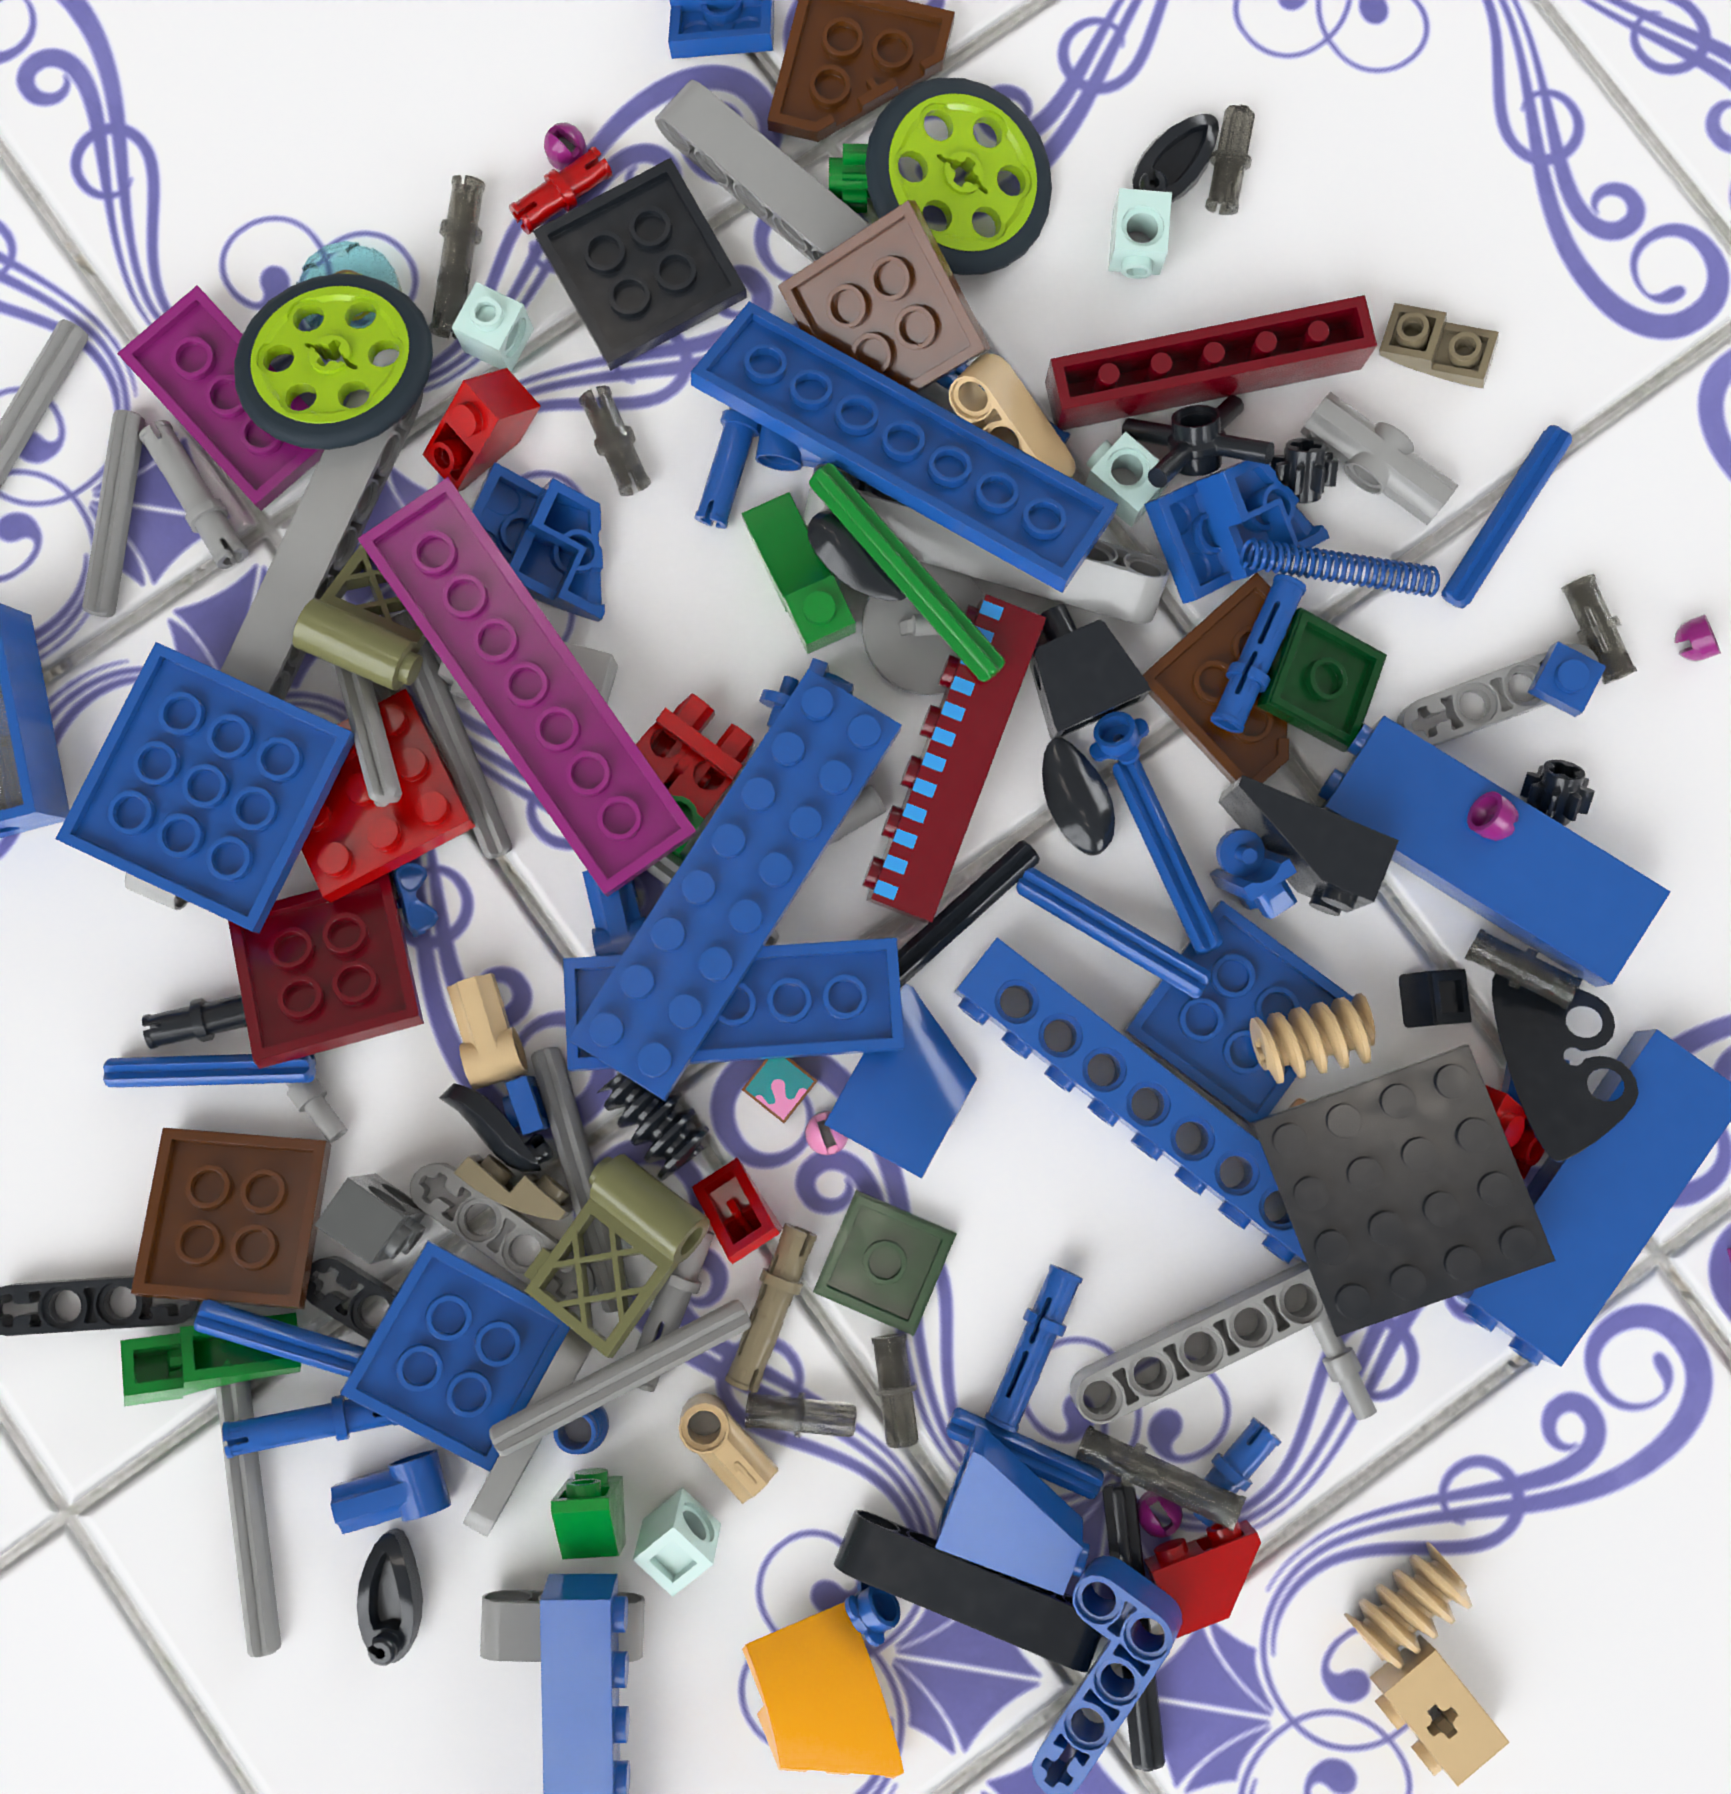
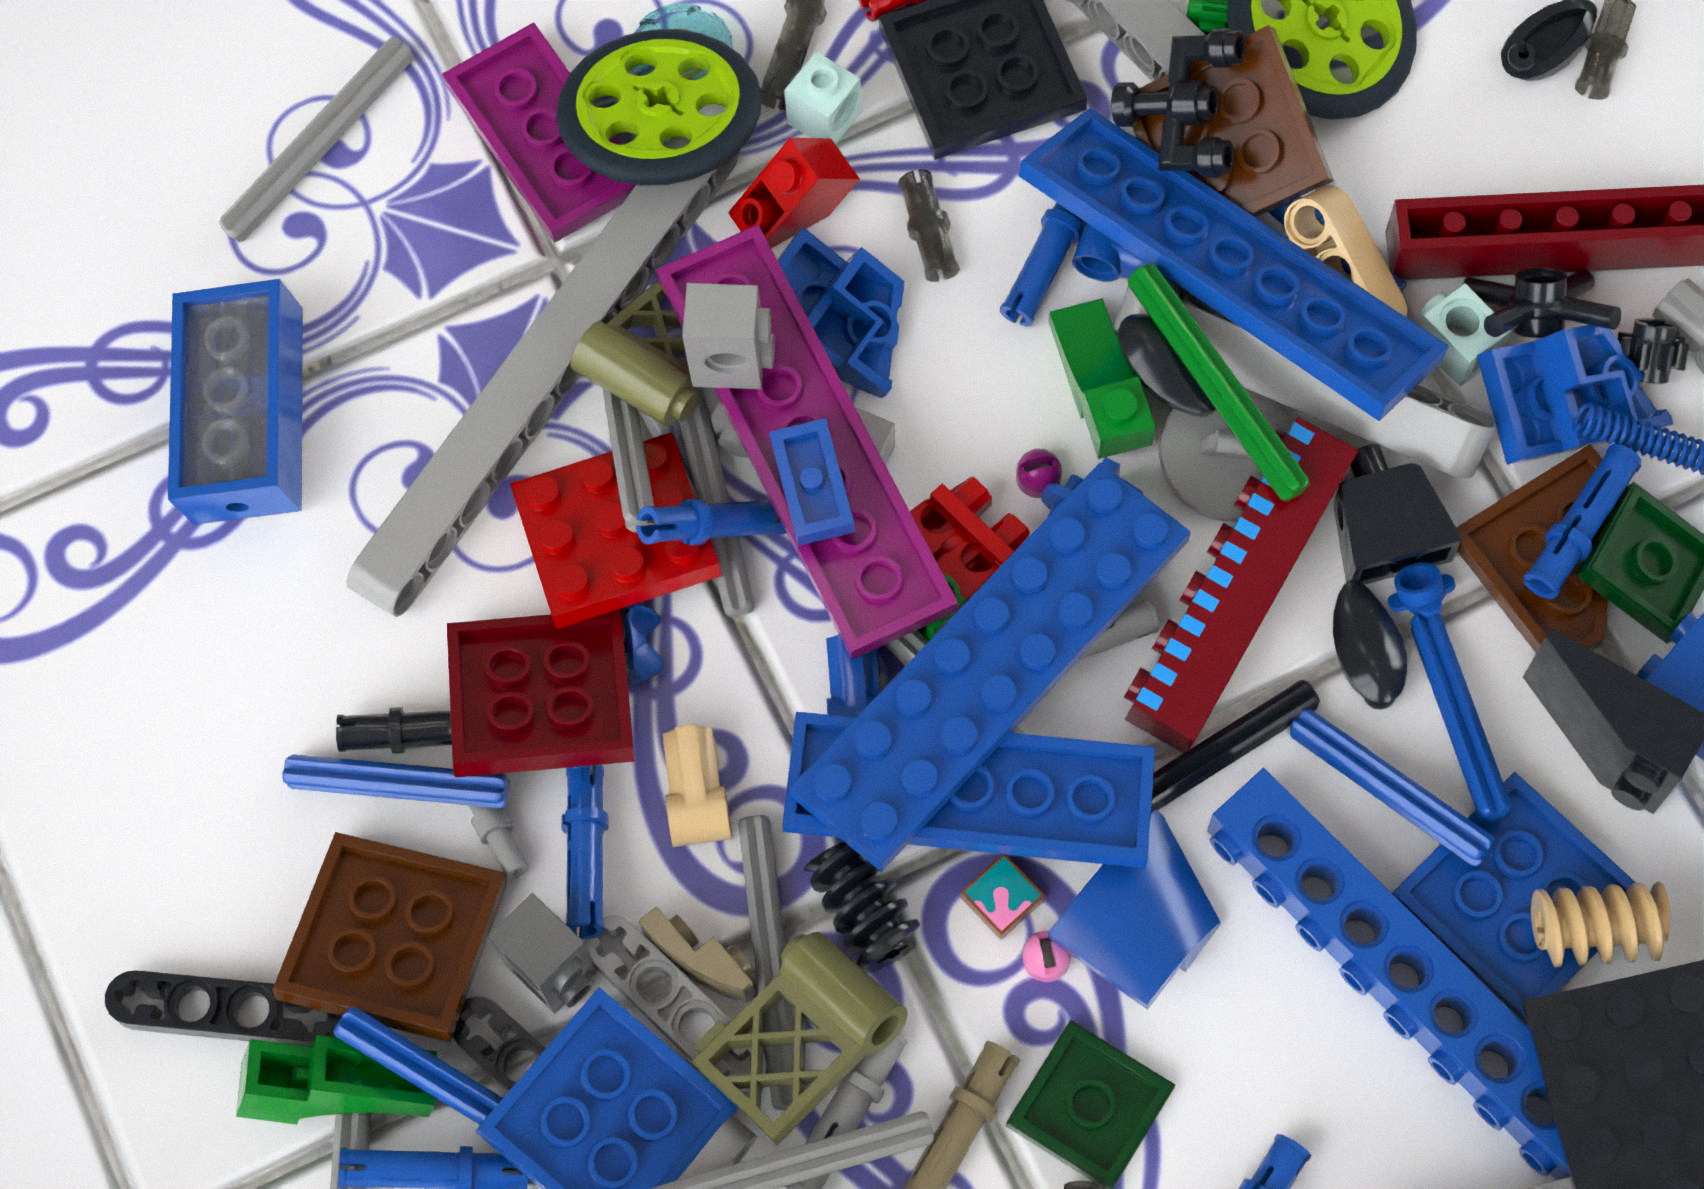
camera: 15 degrees right, 15 degrees down
(113, 514) = (405, 225): light grey axle -> none
(203, 511) = (497, 234): light grey pin -> none
(206, 787) = (456, 489): blue plate -> none
(397, 1125) = (585, 826): none -> blue pin
(431, 608) = (727, 336): none -> light grey brick
(442, 786) = (697, 522): none -> blue pin
(497, 1131) = (691, 889): black arm -> none
(525, 1105) = (724, 872): blue plate -> none
(539, 737) = (812, 482): none -> blue plate
(736, 1210) = (939, 1022): red slope -> none
(754, 684) = (1036, 480): none -> magenta hinge
(839, 289) = (1186, 103): none -> black piece
(1141, 212) = (1508, 82): light aqua brick -> none
(1253, 873) = (1554, 749): blue hips -> none

